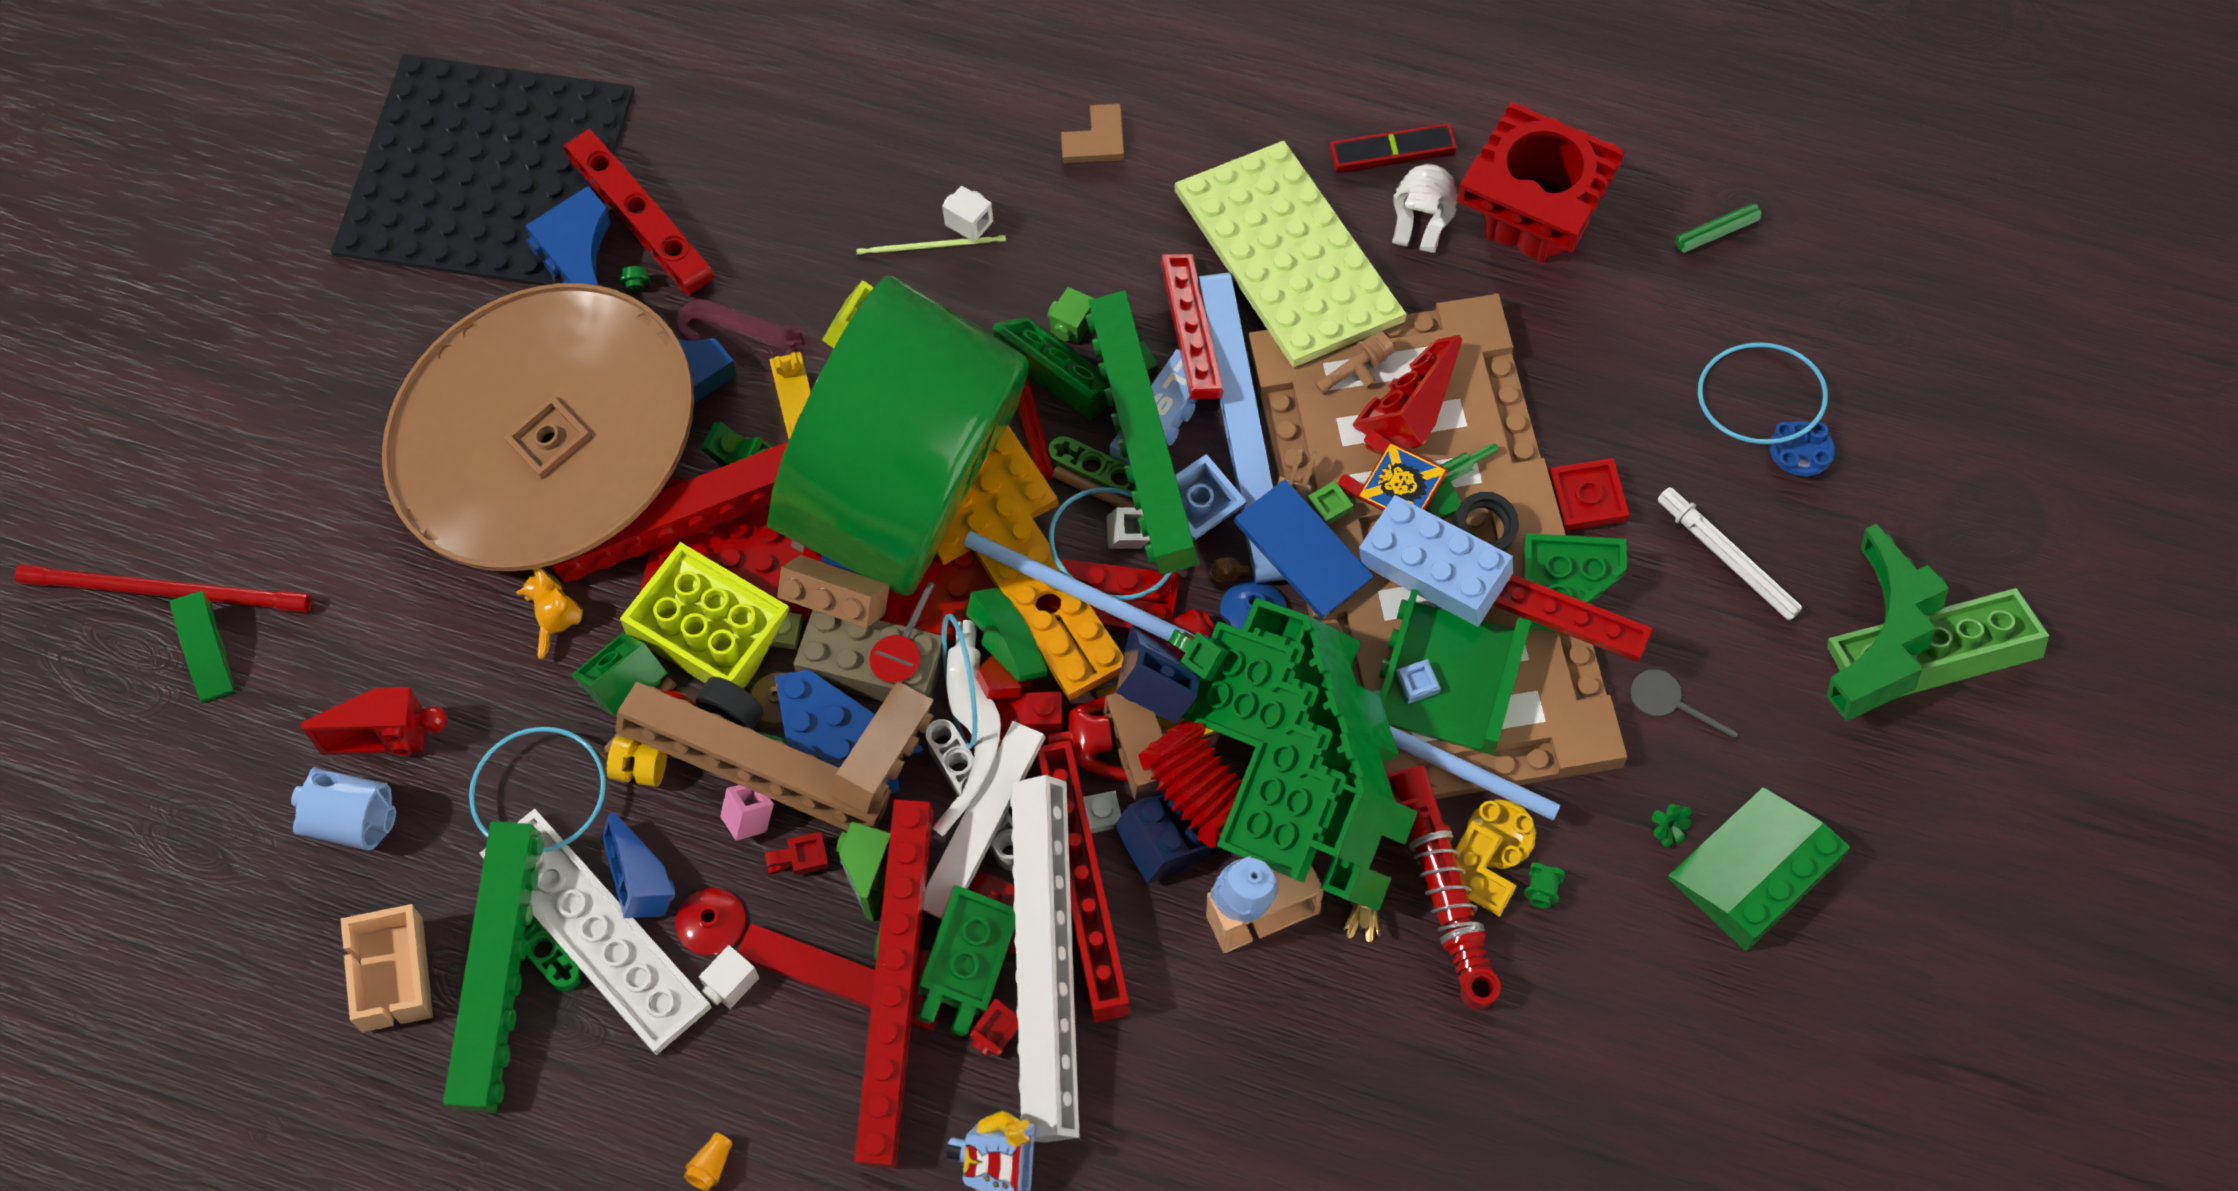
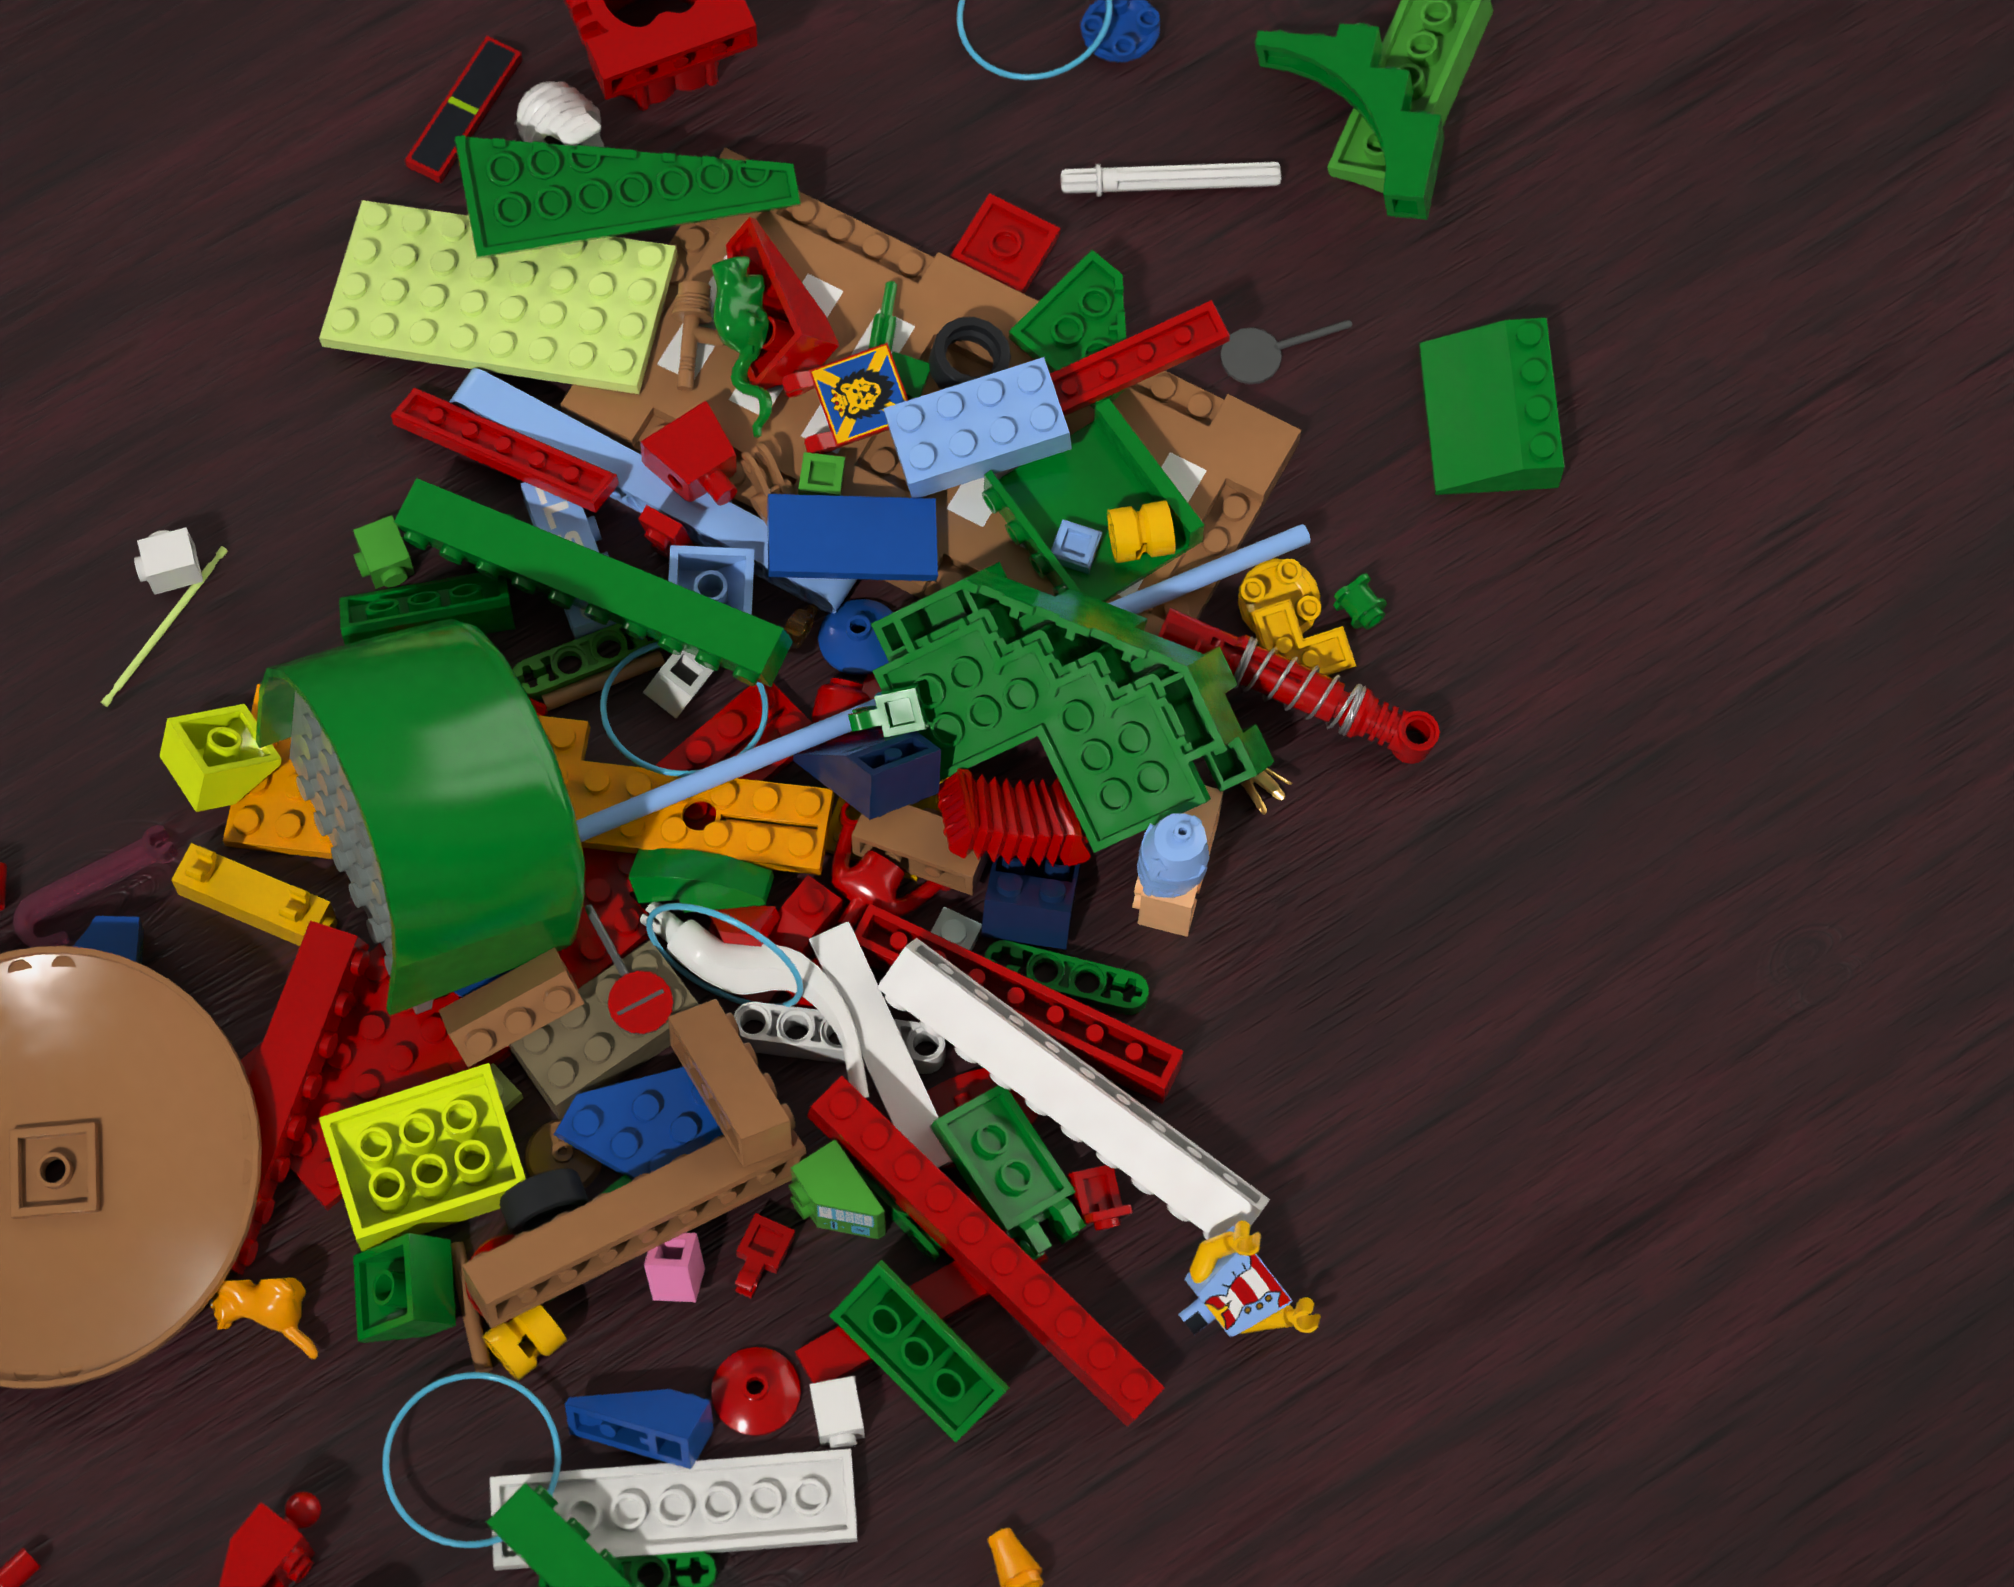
camera: 55 degrees left, 5 degrees up
(728, 447) = (248, 992): green slope -> none
(804, 995) = (919, 1351): none -> green slope
(1101, 143) = (196, 371): medium nougat tile -> none
(1127, 900) = (1069, 969): none -> green beam
(1213, 445) = (663, 531): none -> red plate
(1277, 423) = (693, 456): none -> red torso
(1375, 227) = (564, 194): none -> green wing
(1384, 381) = (742, 326): none -> green animal
(1459, 709) = (1141, 531): none -> yellow wheel
(1671, 824) = (1391, 448): green plant -> none

